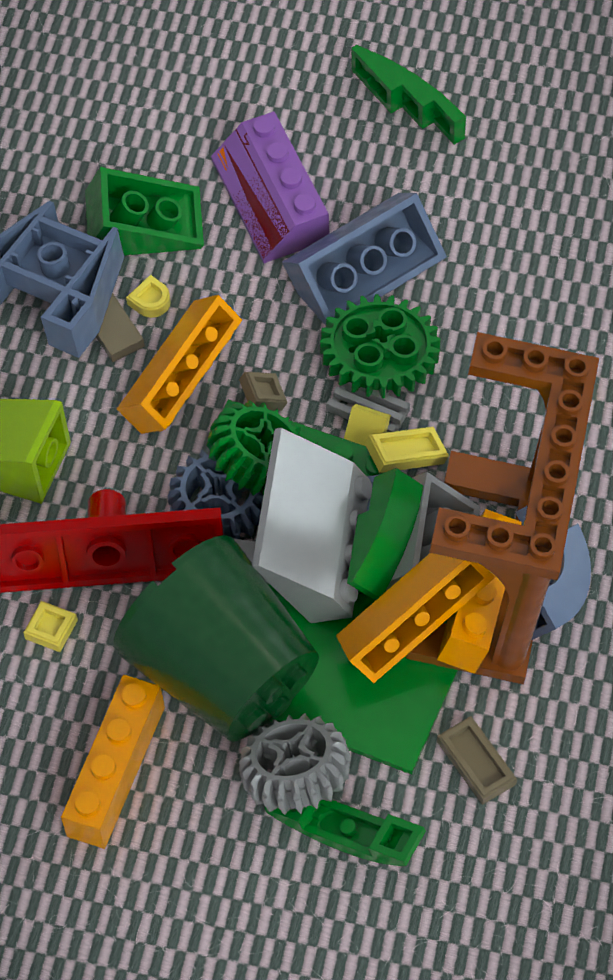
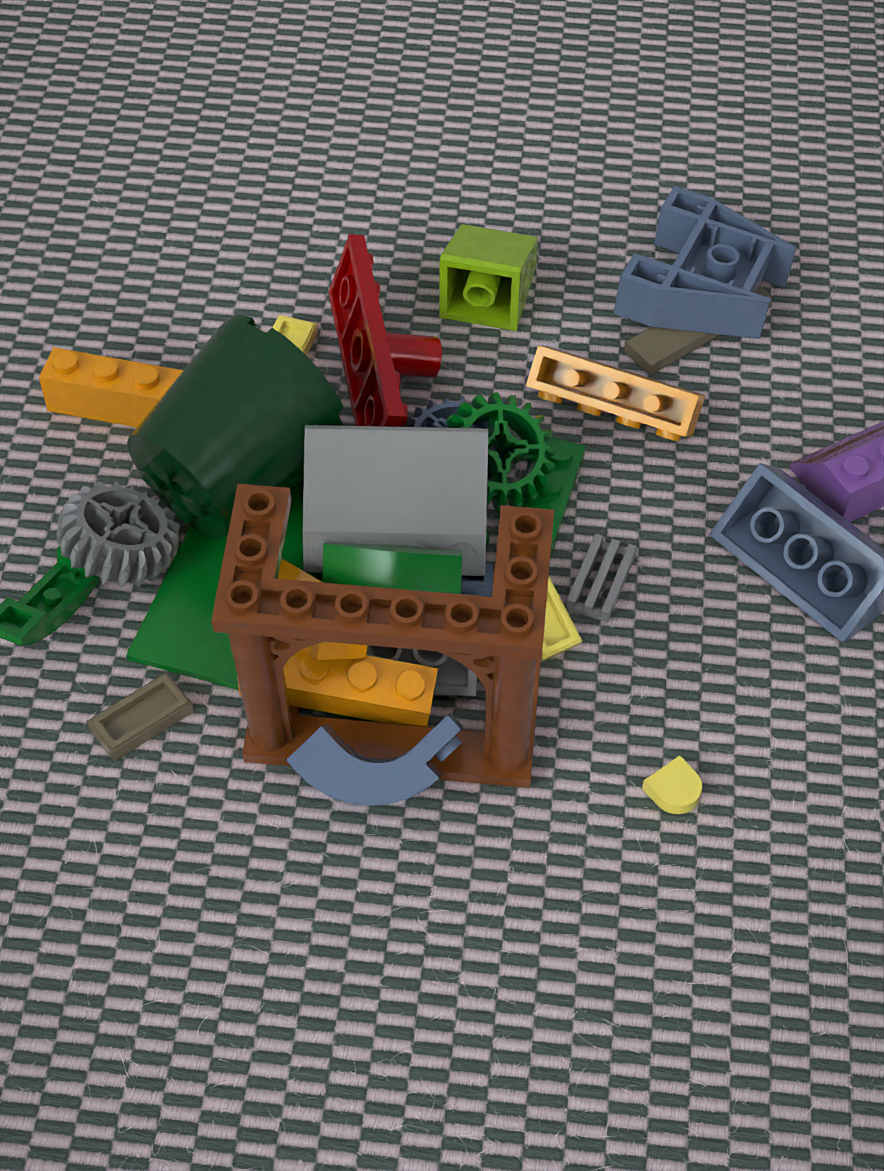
camera: 80 degrees right, 5 degrees down
(147, 210) = (819, 343): green slope -> none
(150, 298) = (713, 370): light yellow tile -> none
(263, 388) = (601, 474): dark tan tile -> none
(364, 422) = (569, 569): light yellow tile -> none
(380, 346) = (684, 576): green gear -> none

